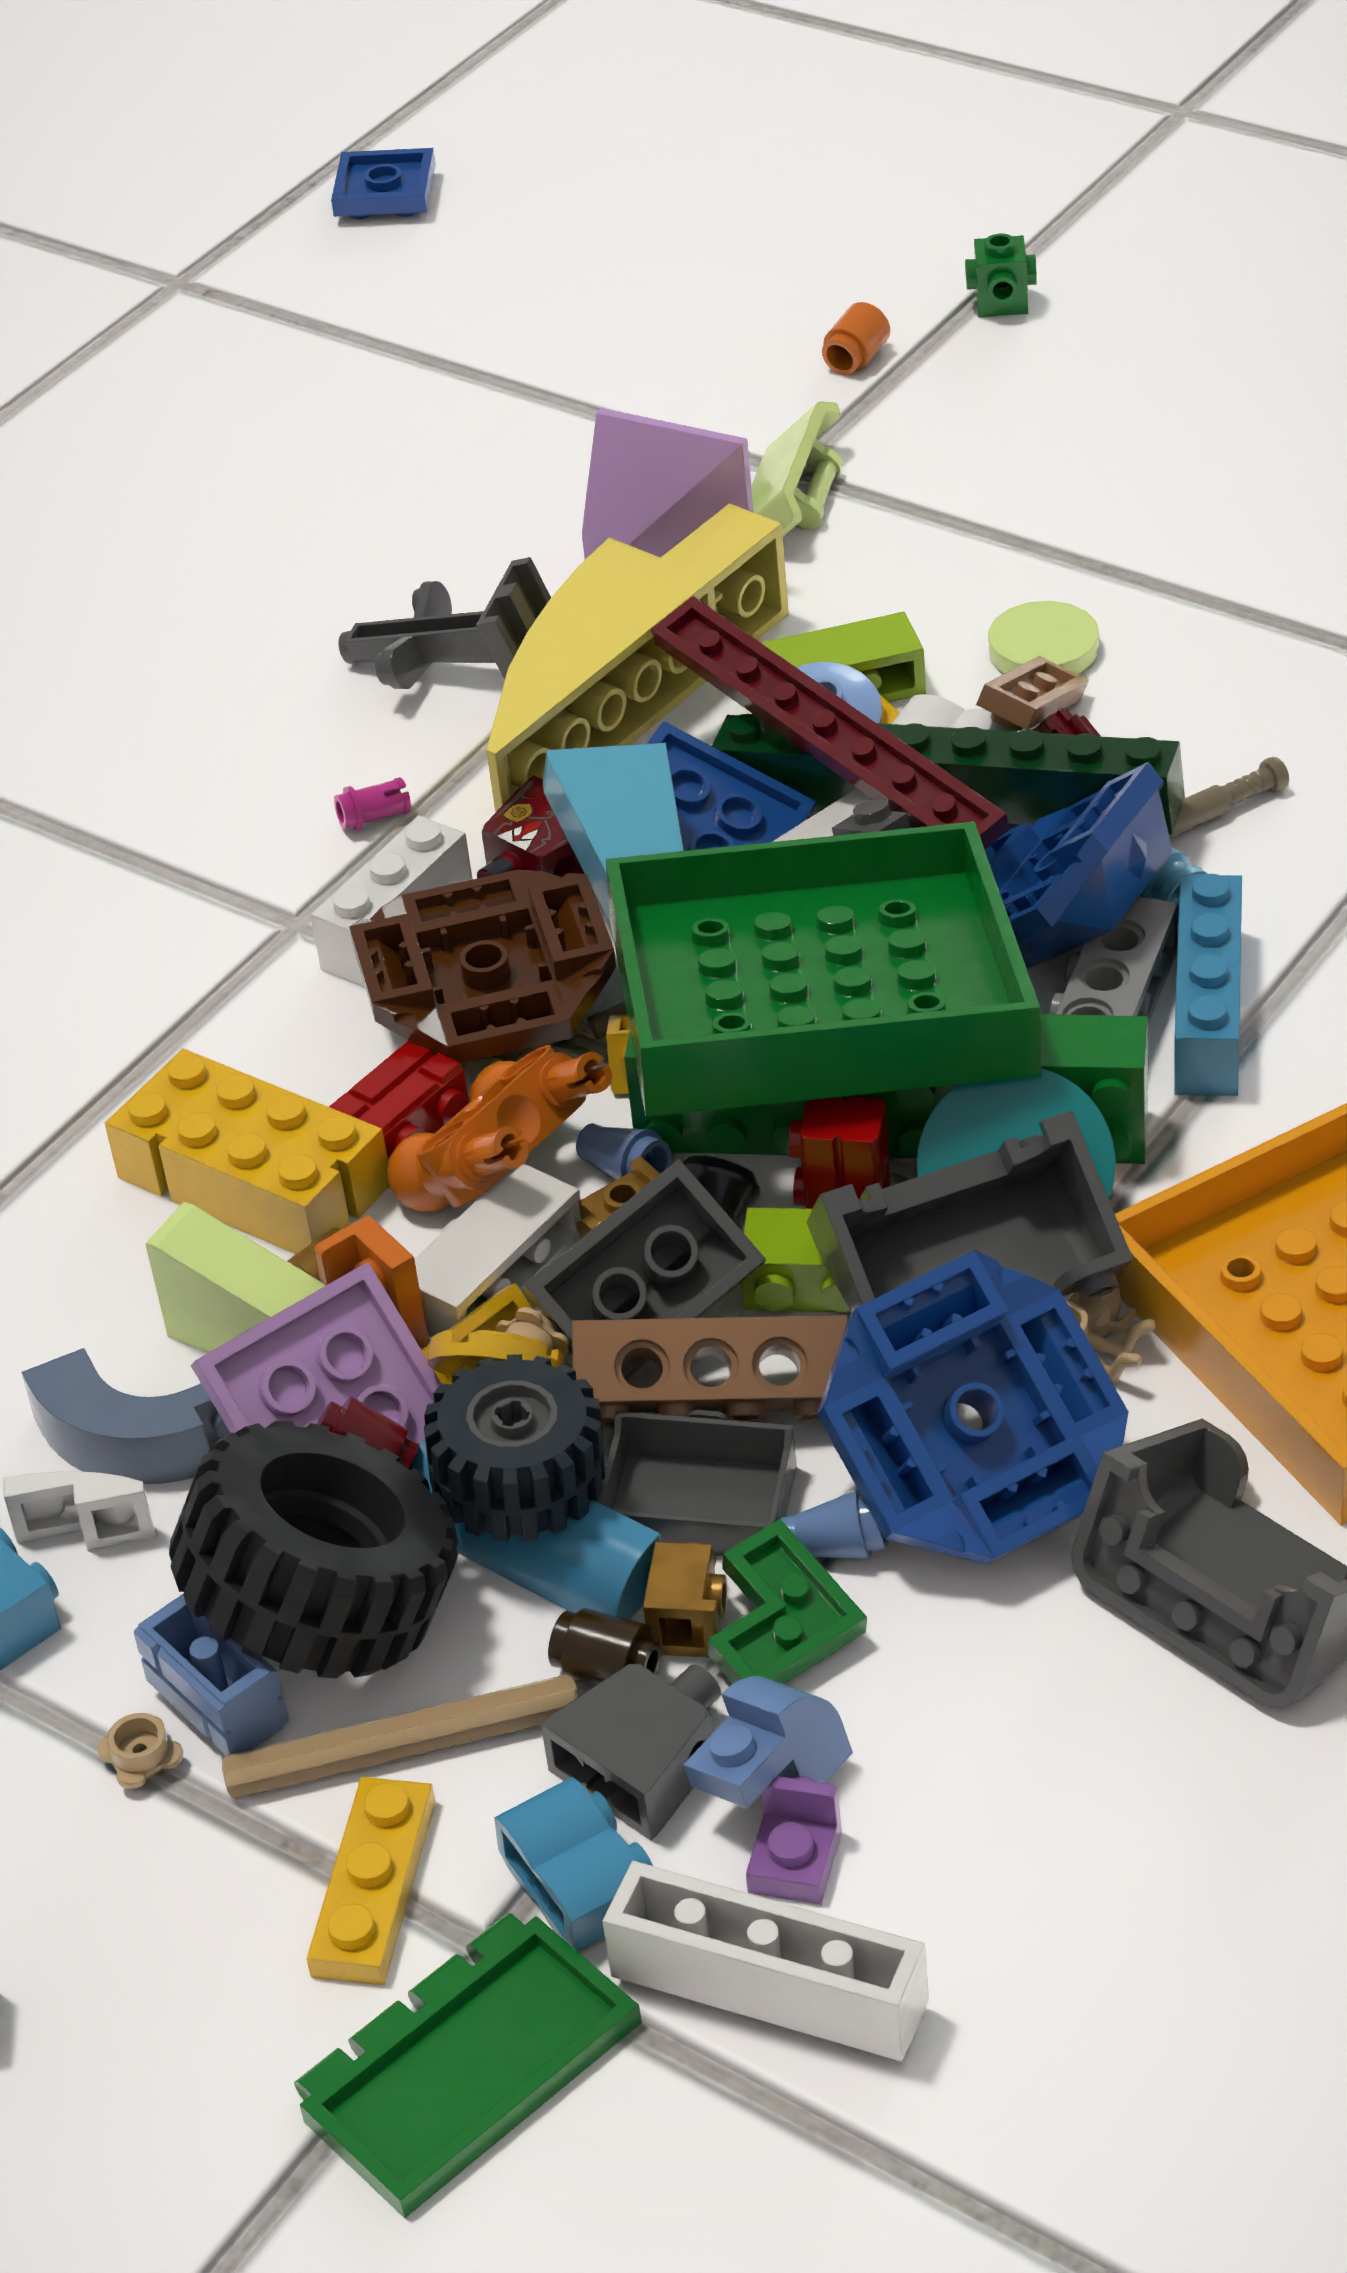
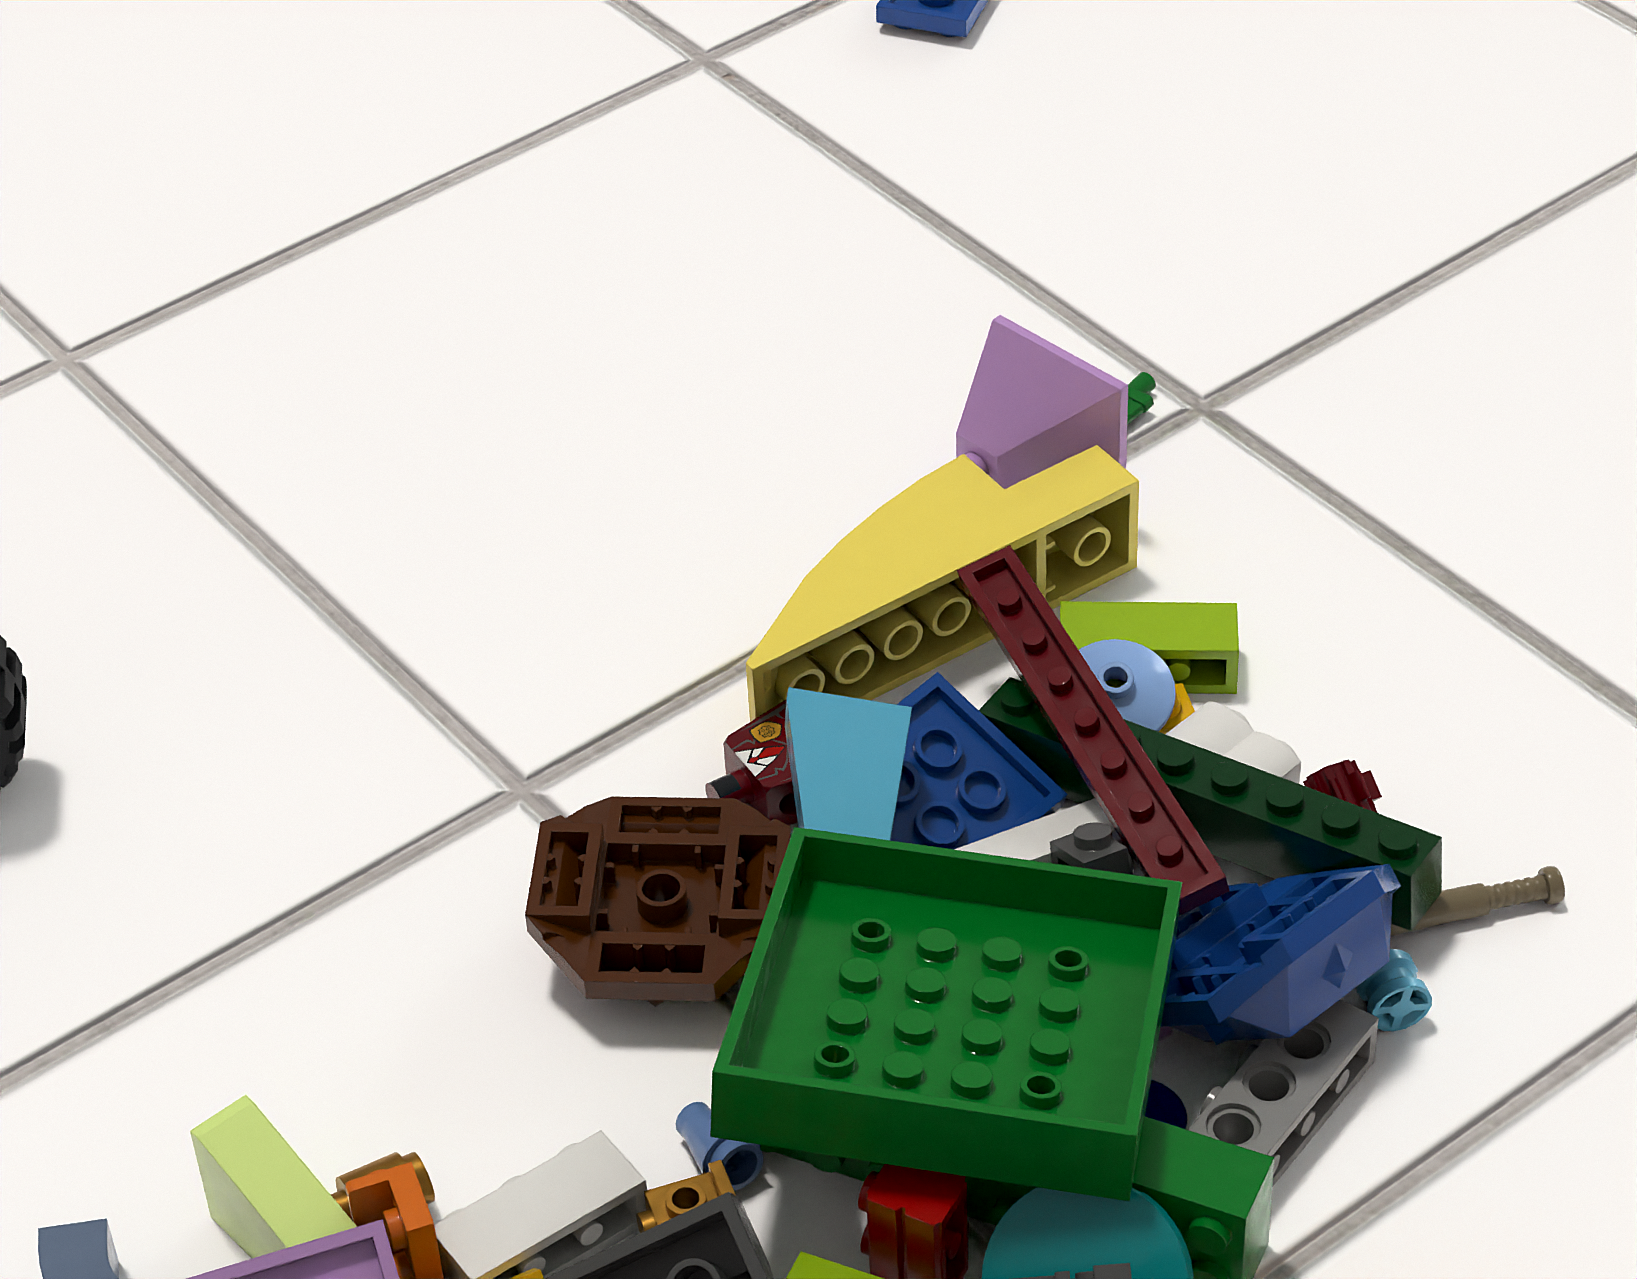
camera: 15 degrees right, 0 degrees up
(247, 1152) = (359, 1039): yellow piece -> none
(371, 803) = (642, 677): dark pink pin -> none
(407, 1094) = (521, 1030): red brick -> none
(413, 861) = (645, 762): white brick -> none
(435, 635) = (746, 512): dark grey piece -> none
(506, 1118) = (565, 1106): orange piece -> none
(727, 1183) = (785, 1218): black cone -> none
(777, 478) = (1167, 438): yellowish green piece -> none
(855, 338) = (1321, 276): orange brick -> none
(1001, 275) = (1493, 240): green brick -> none
(1031, 693) = (1328, 730): medium nougat plate -> none
(1045, 630) = (1376, 665): yellowish green tile -> none
(1208, 985) = (1378, 1121): dark azure brick -> none

